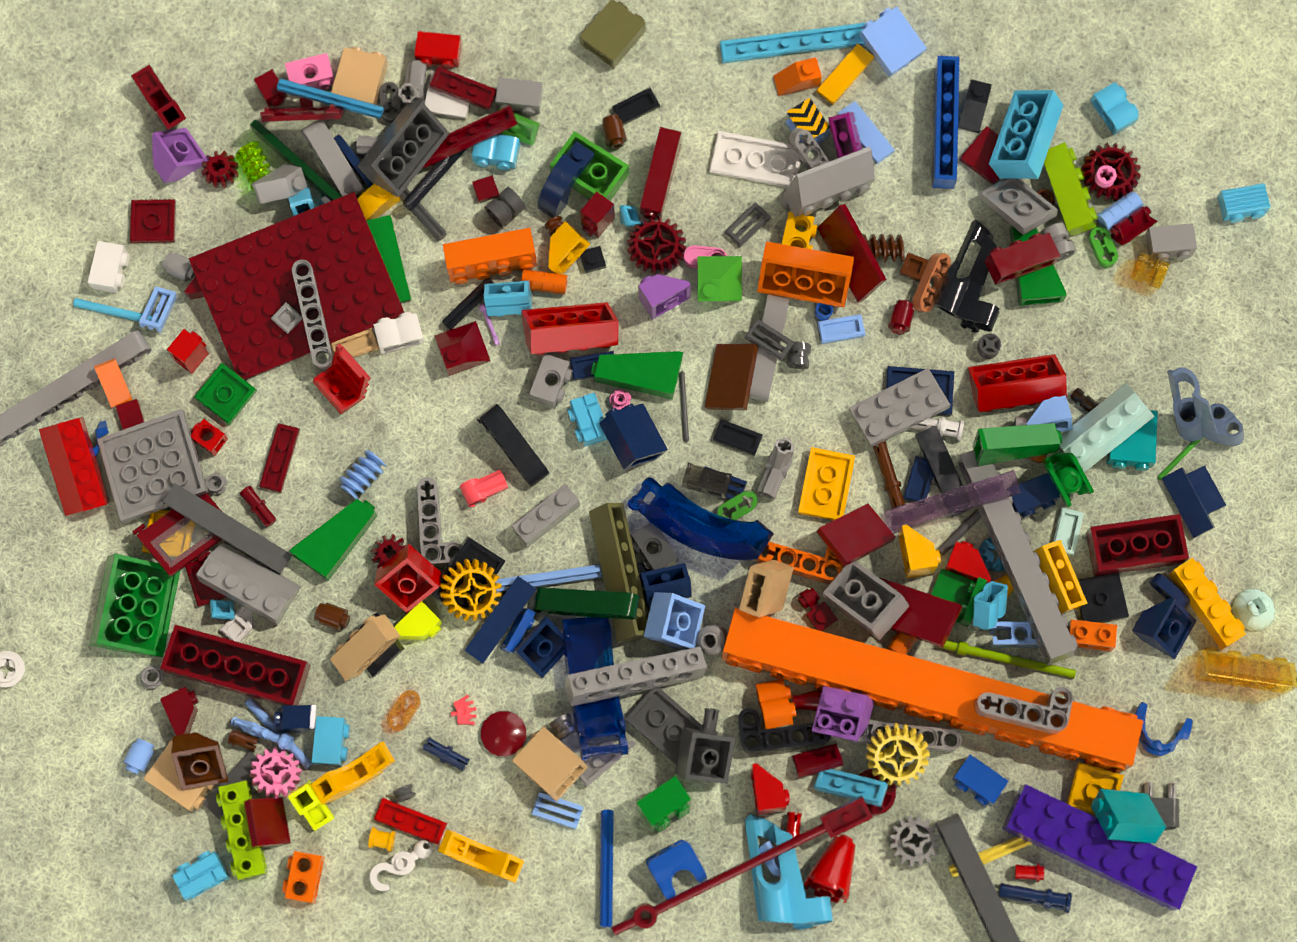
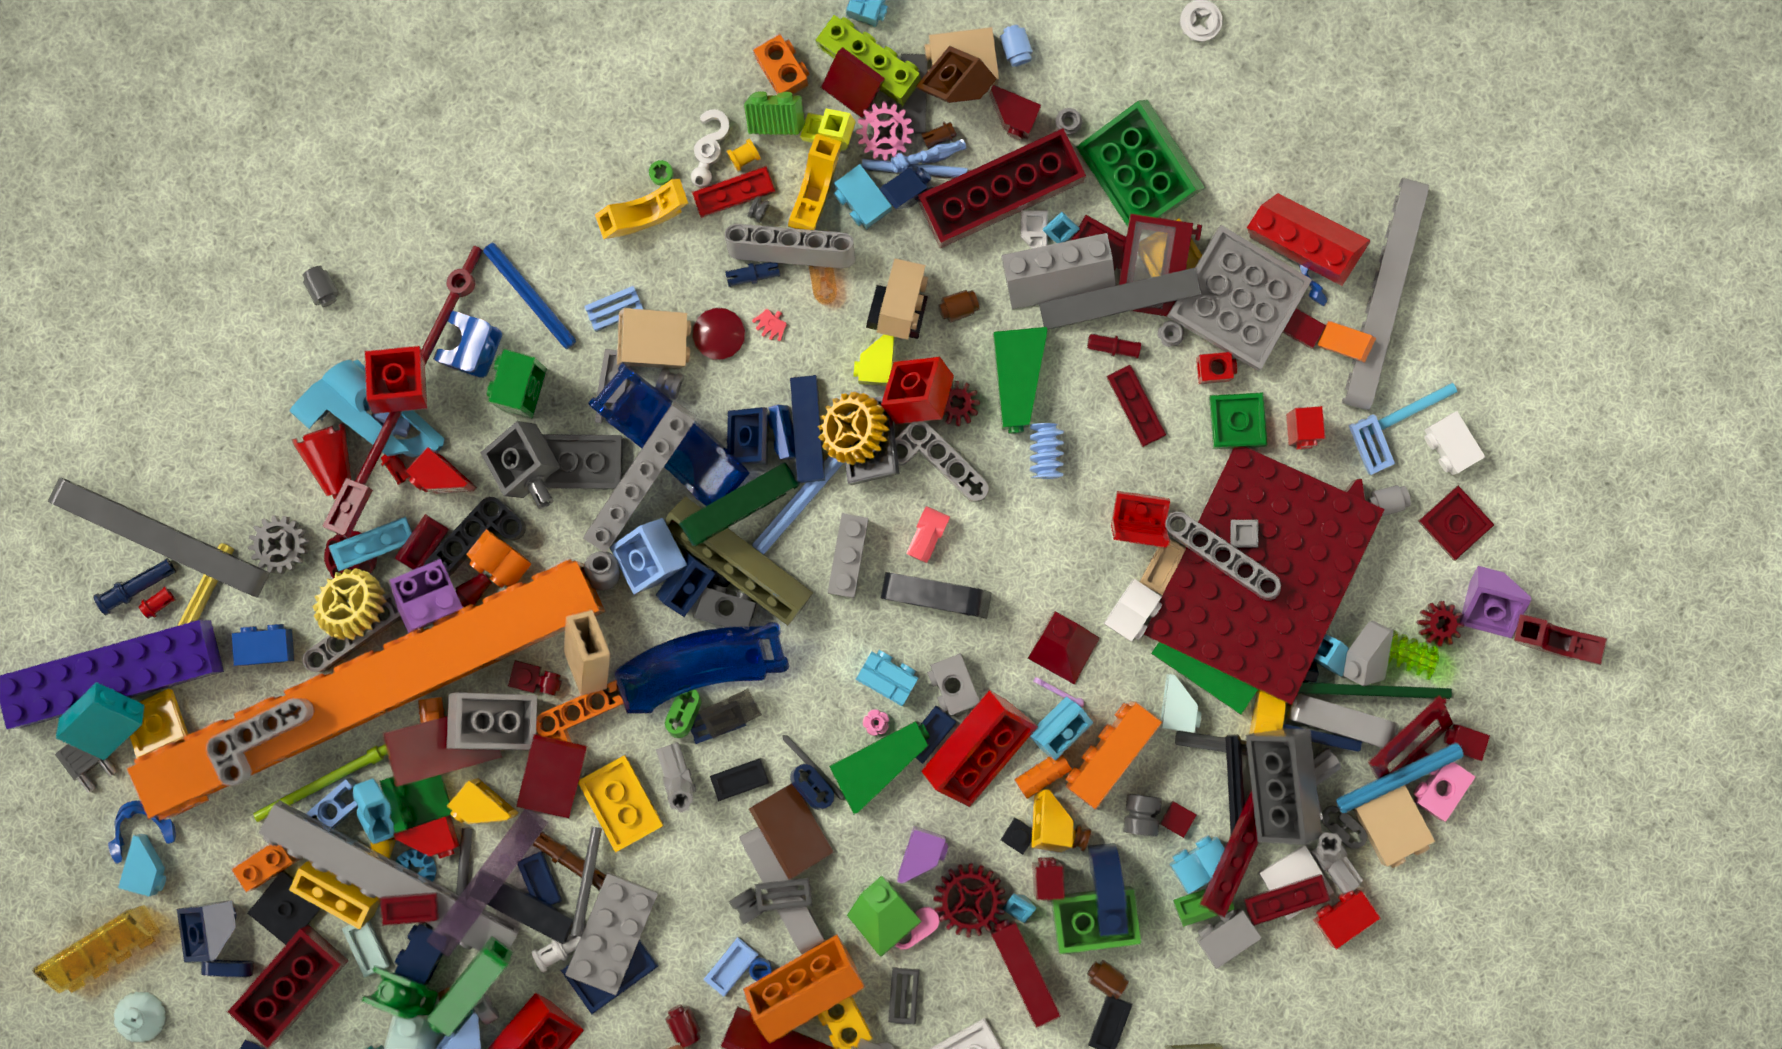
camera: 140 degrees right, 10 degrees up
(337, 845) = (774, 113): none -> bright green brick
(395, 741) = (790, 246): none -> light grey beam
(425, 251) = (1178, 707): none -> light aqua slope
(440, 872) = (660, 163): none -> bright green bush
(466, 305) = (1095, 692): black axle -> none
(633, 435) = (832, 695): dark blue brick -> none
(690, 393) = (816, 782): none -> dark blue beam
(741, 874) = (395, 379): none -> red brick
(888, 451) = (586, 881): none -> dark grey bar
(1016, 523) = (409, 908): none -> dark red tile
(1176, 700) = (142, 868): none -> medium azure slope
(1207, 603) = (181, 984): yellow brick -> none

